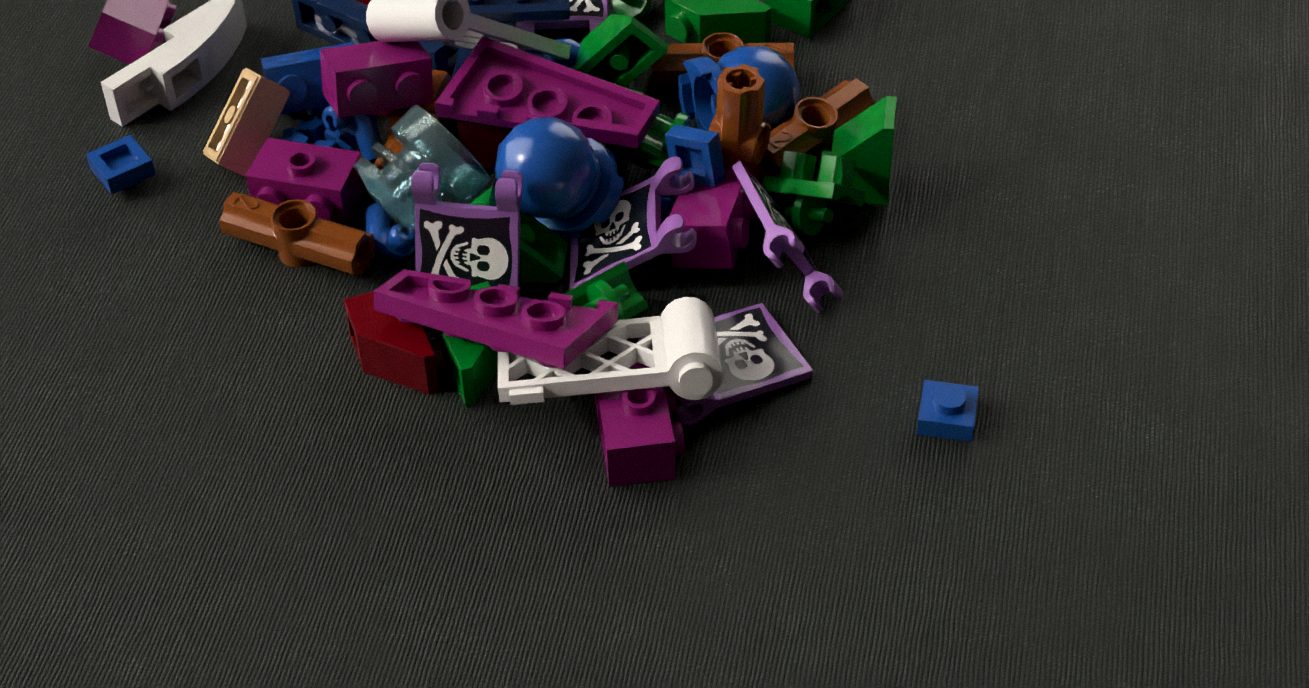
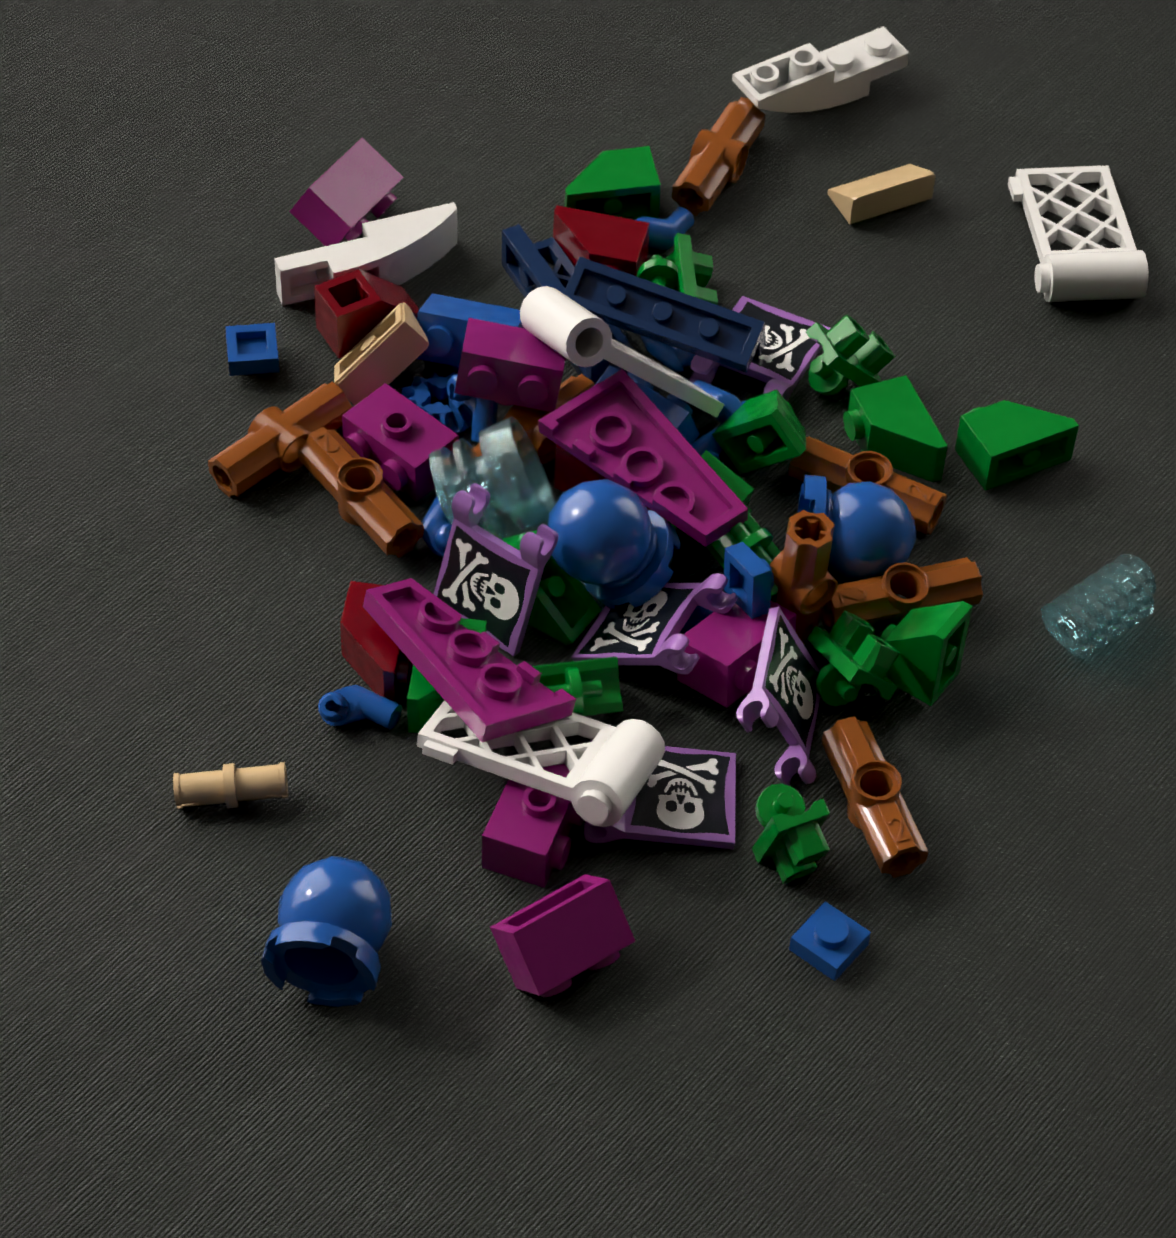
camera: 25 degrees right, 5 degrees up
(192, 223) = (275, 439): none -> dark orange piece
(195, 98) = (353, 306): none -> dark red slope
(338, 516) = (230, 785): none -> tan pin
(409, 401) = (356, 704): none -> blue arm
(527, 592) = (330, 932): none -> blue tile
(733, 501) = (563, 935): none -> magenta brick
(868, 336) = (790, 833): none -> green hips
(904, 283) = (881, 818): none -> dark orange piece
(971, 74) = (1101, 606): none -> clear light blue piece

